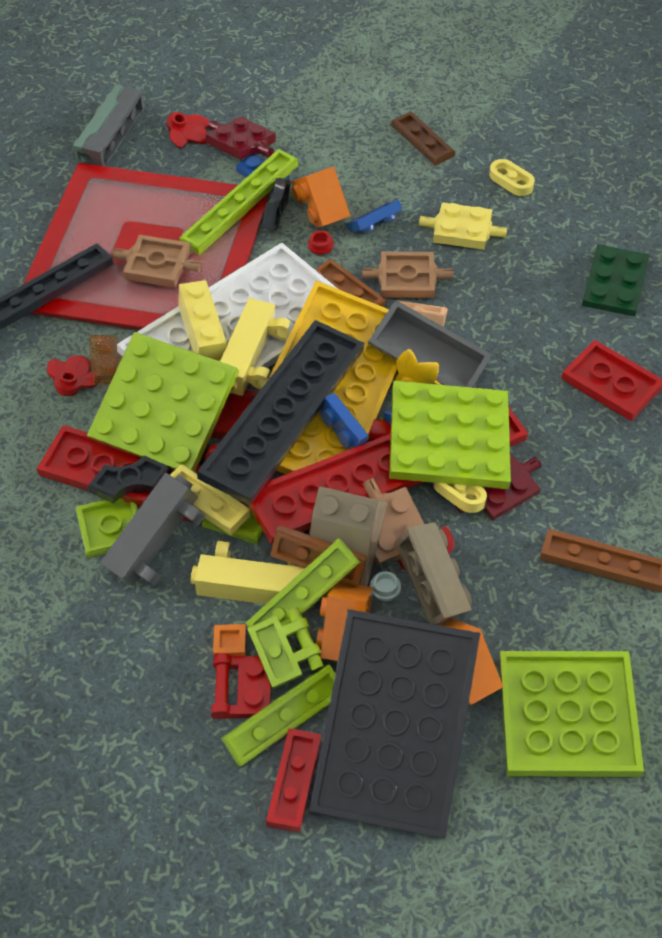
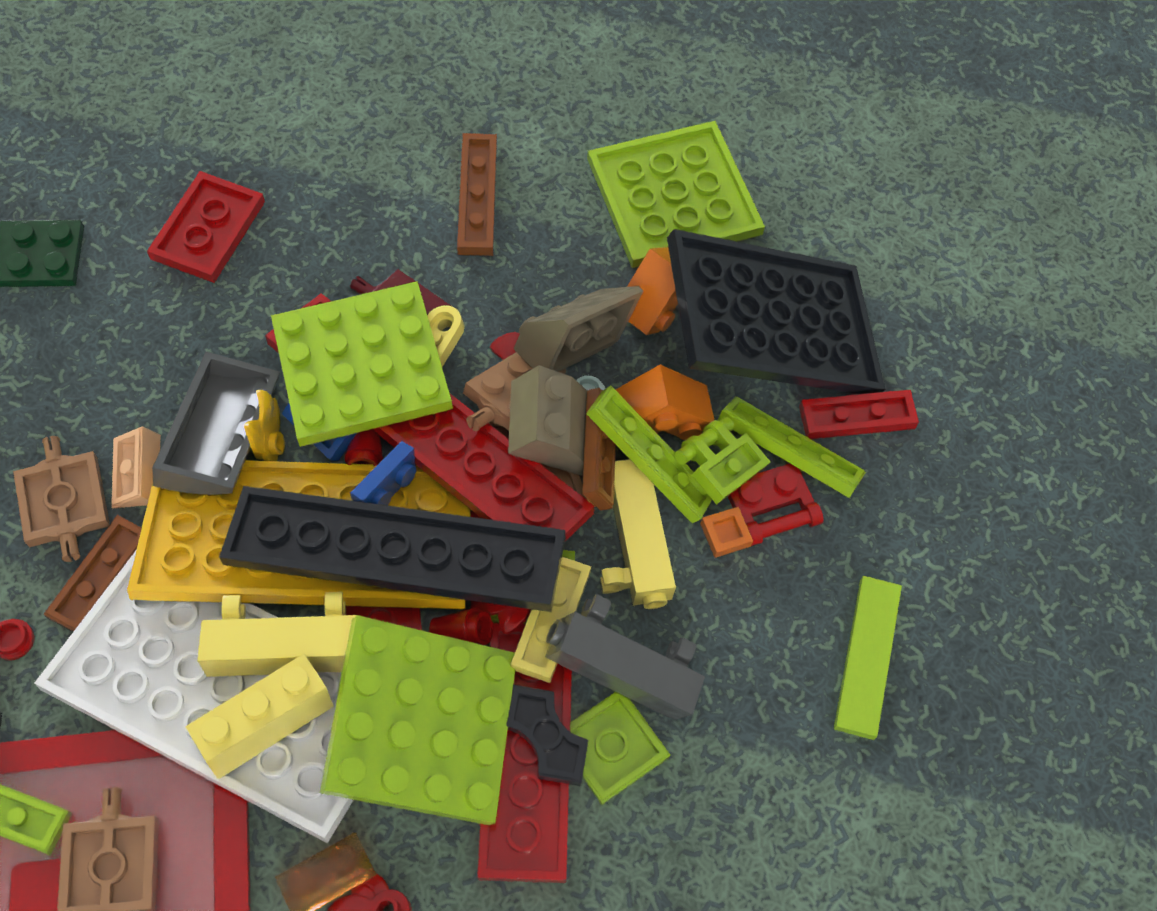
camera: 115 degrees left, 10 degrees up
(94, 708) = (868, 658): none -> lime tile

